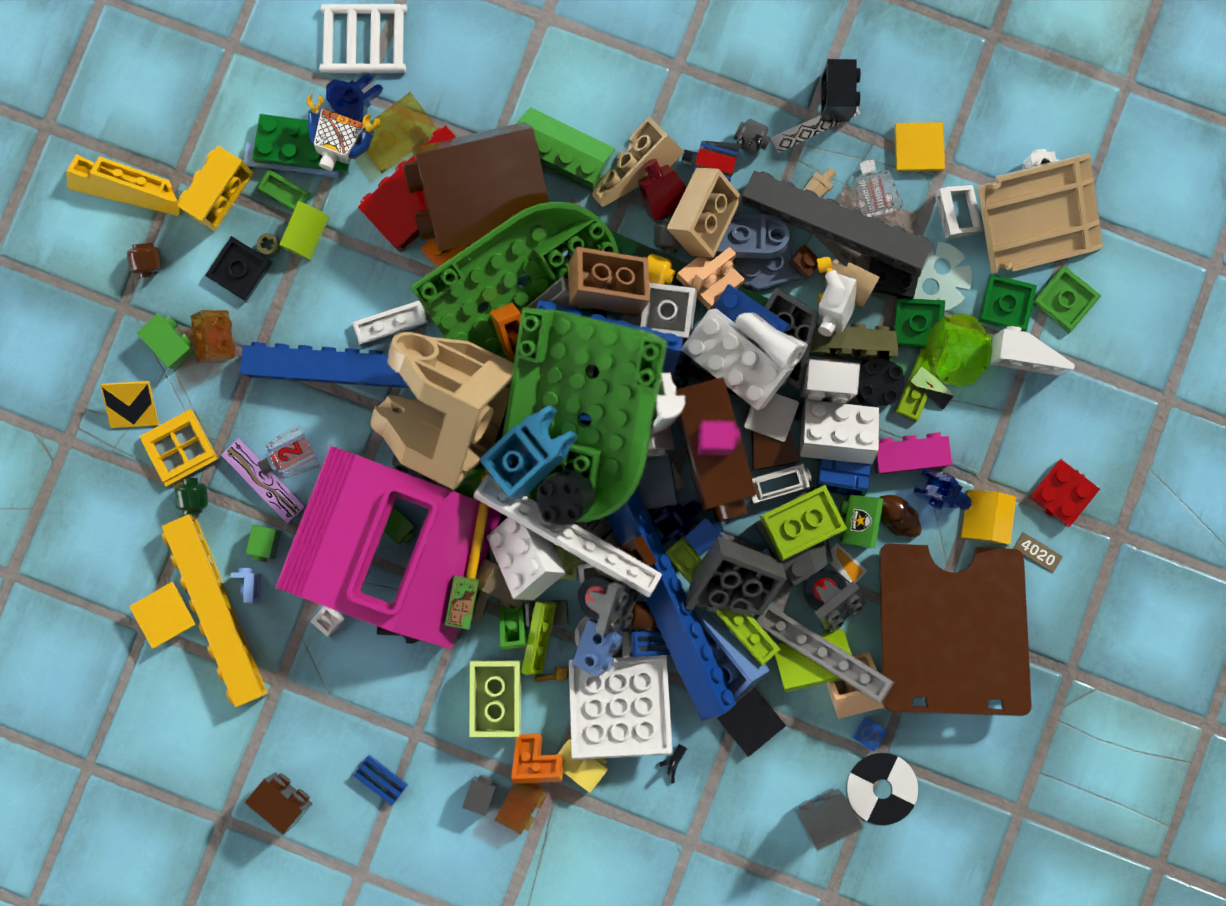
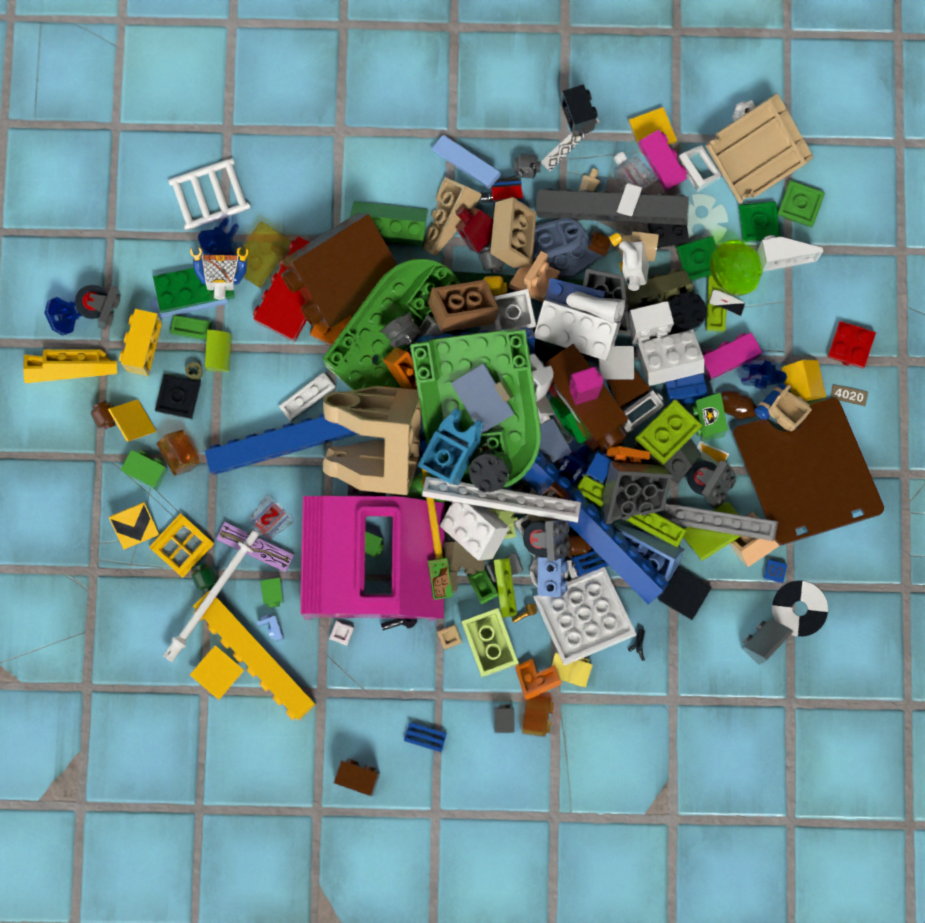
camera: 25 degrees left, 5 degrees down
(129, 564) = (179, 641): none -> white bar
(141, 123) = (66, 315): none -> clear blue hinge
(172, 278) = (132, 420): none -> yellow piece
(181, 124) = (95, 303): none -> plate
(452, 671) = (449, 637): none -> tan tile
(522, 285) = (401, 330): none -> dark grey piece
(588, 404) = (481, 397): none -> sand blue tile
(615, 406) = (504, 390): none -> dark tan tile
(681, 106) = (466, 161): none -> light blue tile
(685, 464) = (567, 420): none -> green tile
(741, 533) = (627, 455): none -> orange plate
(859, 221) = (629, 199): none -> white sticker
(918, 186) = (662, 160): none -> dark pink brick
(954, 541) = (784, 407): none -> tan piece

